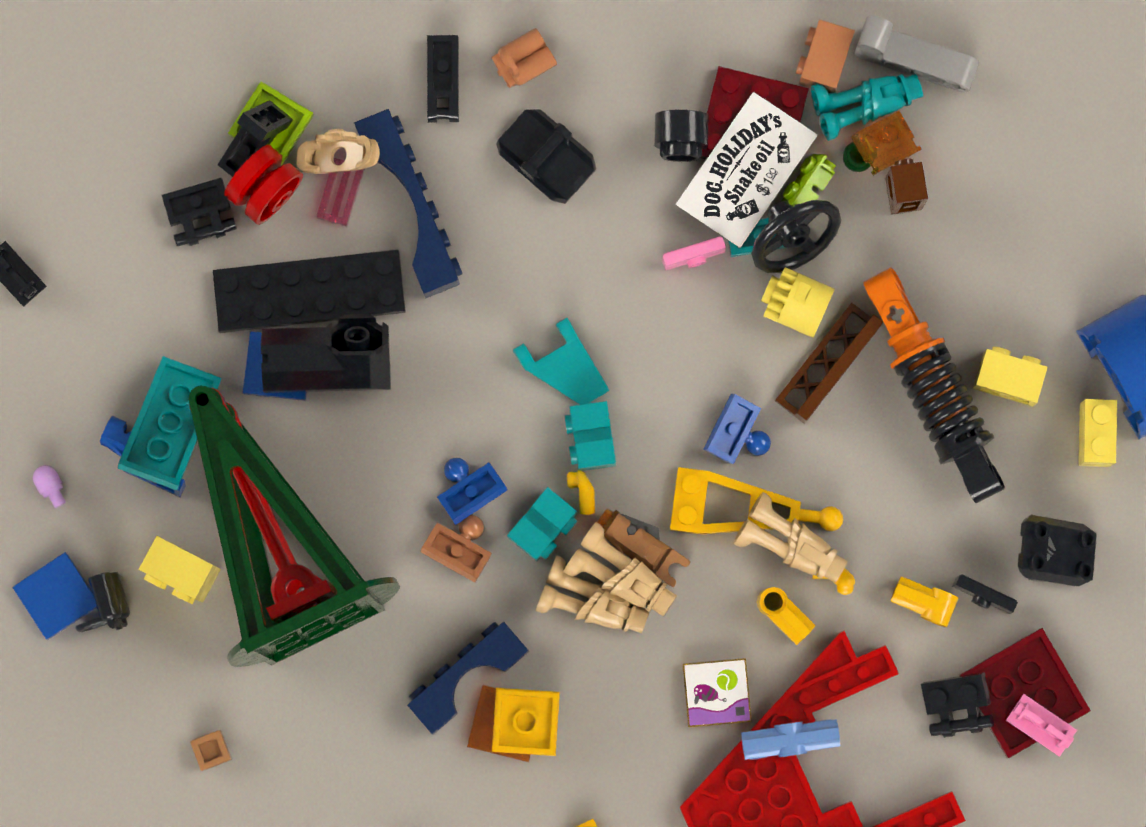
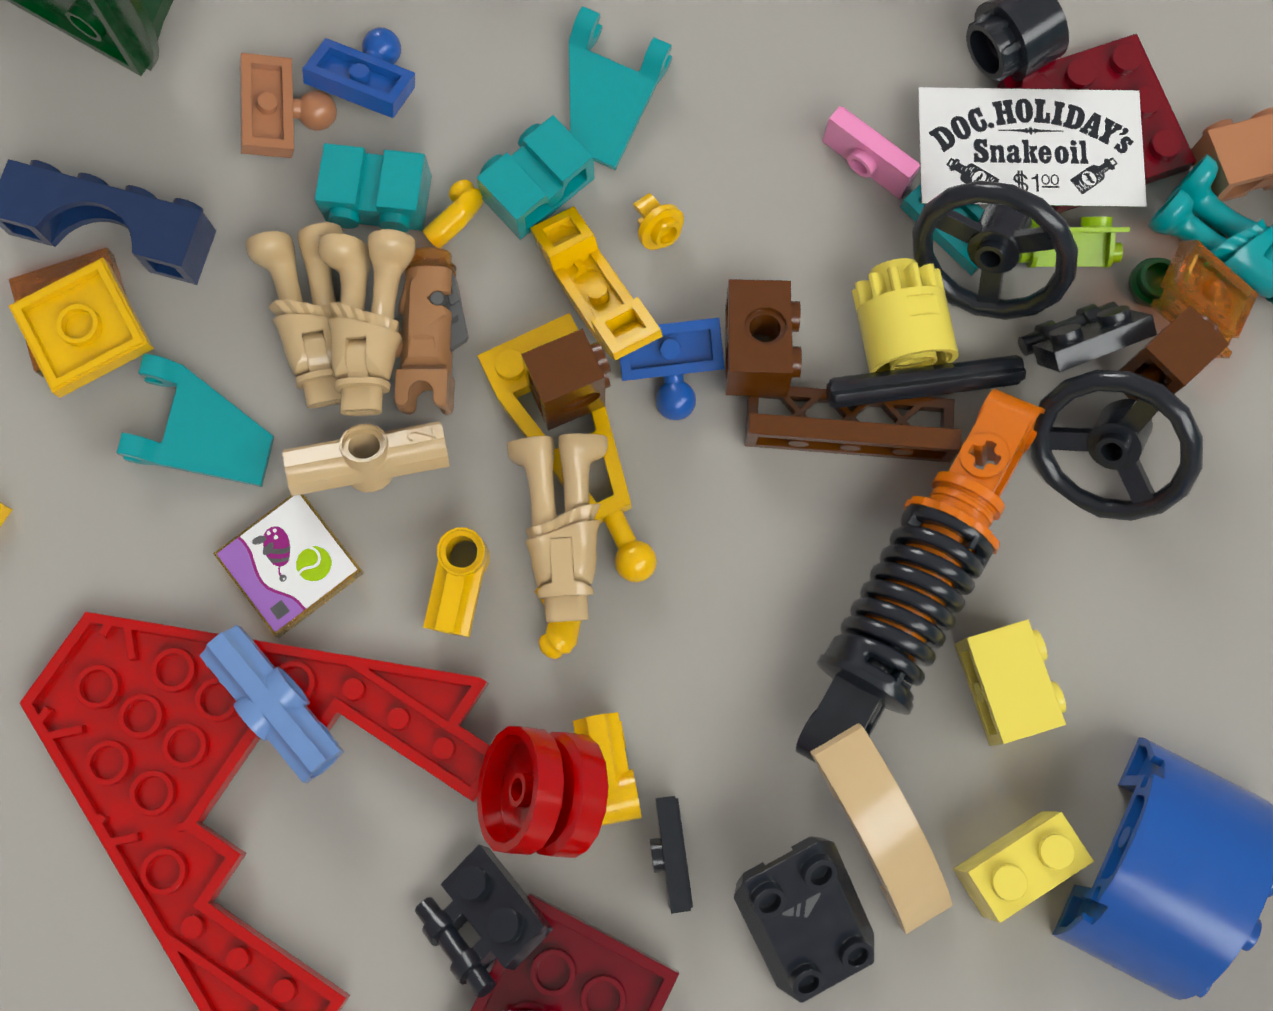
camera: 50 degrees right, 5 degrees down
(617, 694) = (202, 430): none -> teal flag
(662, 389) = (659, 223): none -> yellow plate
(675, 445) = (593, 286): none -> yellow slope
(697, 601) = (365, 458): none -> tan piece
(725, 492) = (567, 378): none -> reddish brown brick
(768, 395) = (754, 365): none -> reddish brown brick
(834, 311) = (925, 381): none -> black axle
(865, 217) = (1087, 335): none -> black plate
(918, 636) = (542, 792): none -> red wheel
(930, 242) = (1118, 443): none -> black piece
(1039, 486) = (884, 827): none -> tan slope

